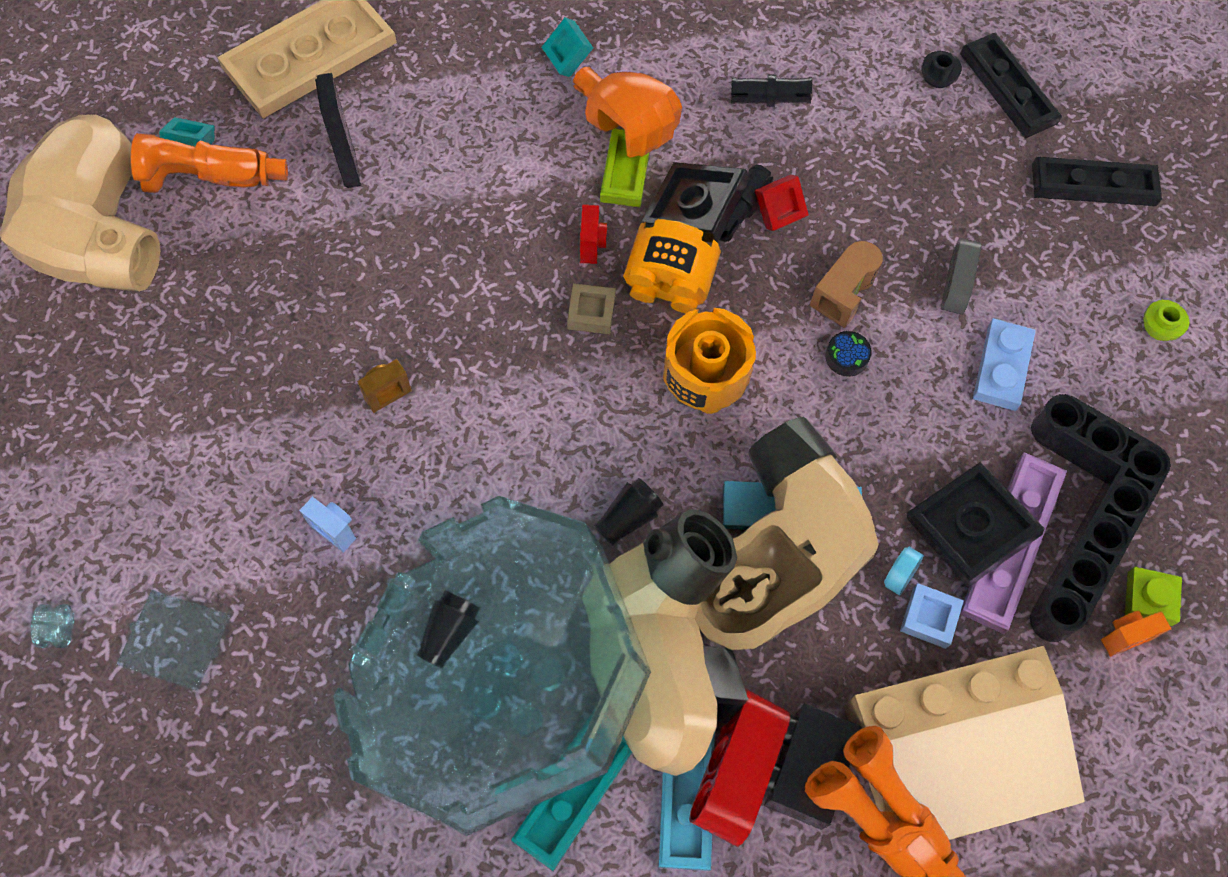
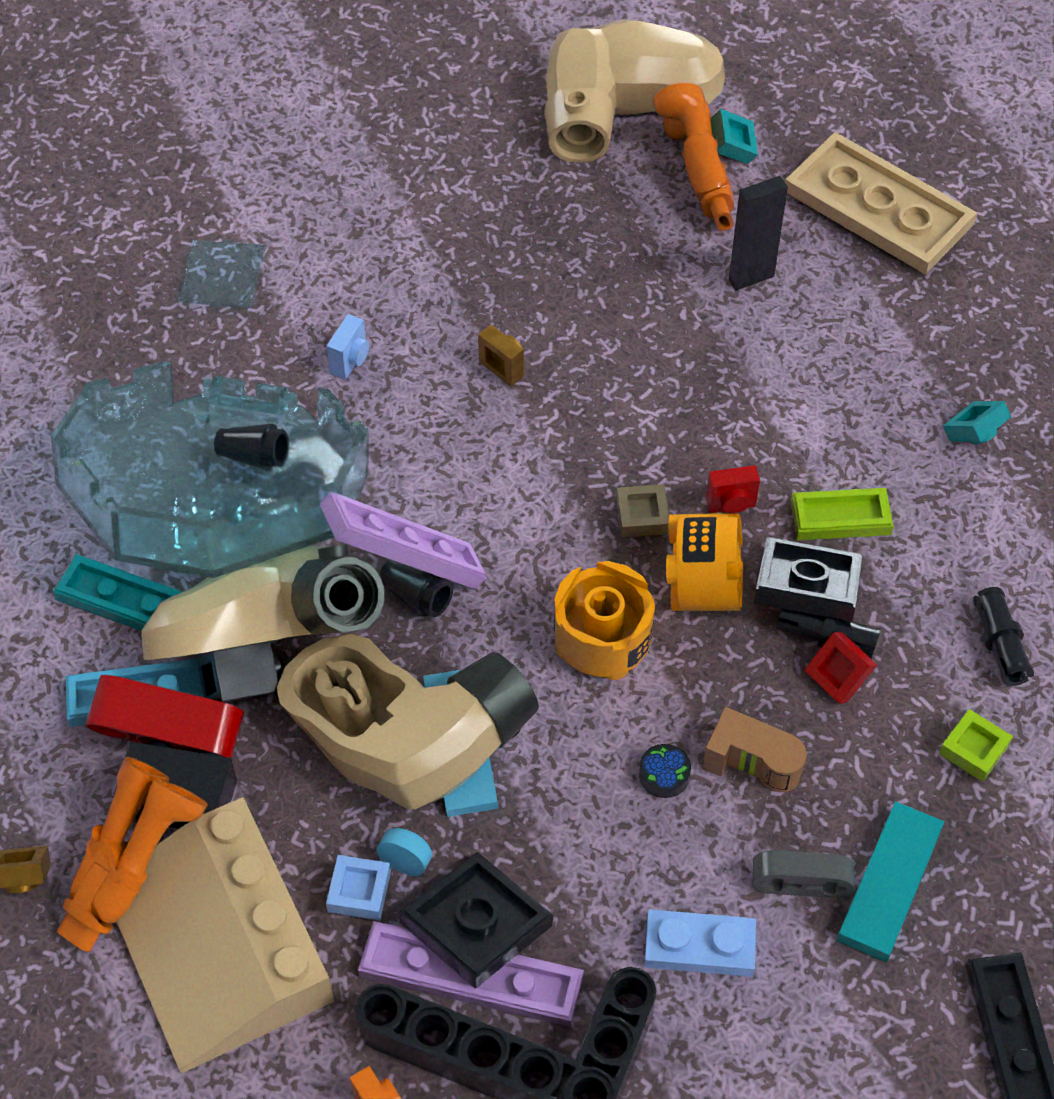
camera: 80 degrees right, 10 degrees down
(52, 626) = (215, 186): clear light blue bush -> none
(616, 500) = (402, 540): none -> lavender tile
(635, 102) = (900, 488): orange piece -> none
(864, 134) = (976, 745): none -> lime plate
(962, 218) = (890, 881): none -> teal tile

